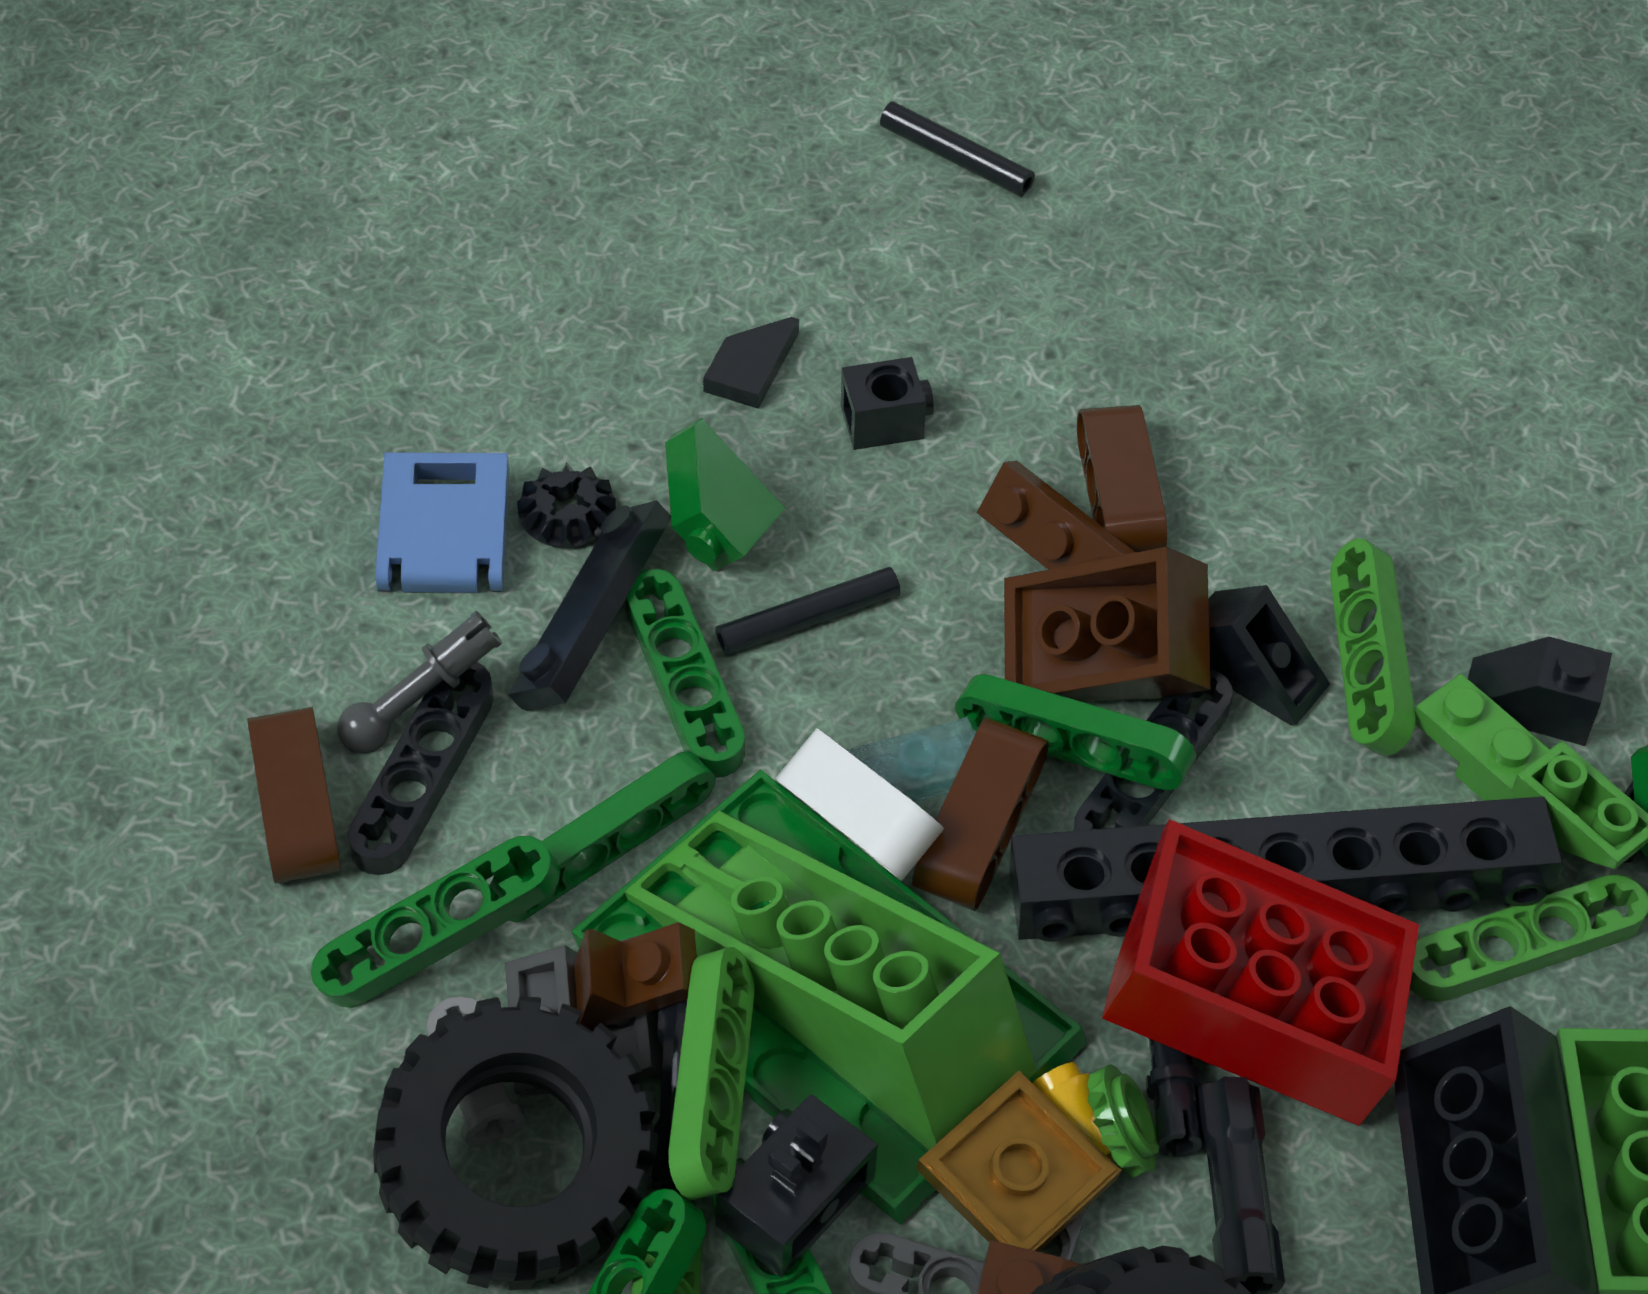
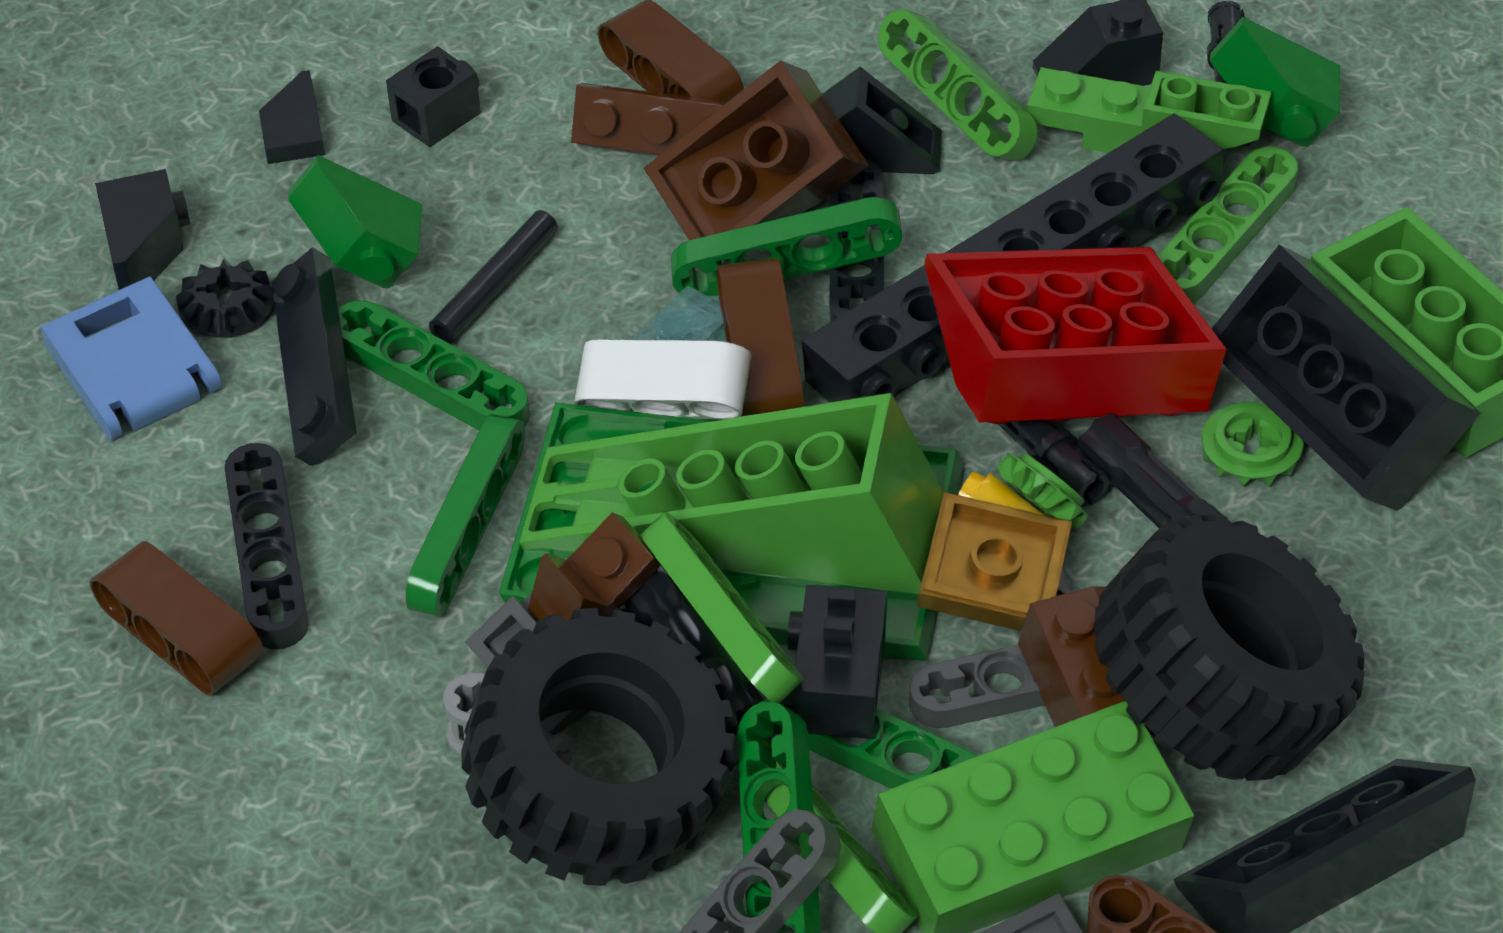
camera: 30 degrees left, 5 degrees down
(365, 725) = (190, 540): dark grey pin -> none
(439, 930) = (378, 636): green beam -> none
(539, 400) = (142, 224): none -> black slope
(1340, 1183) = (1228, 433): none -> bright green gear

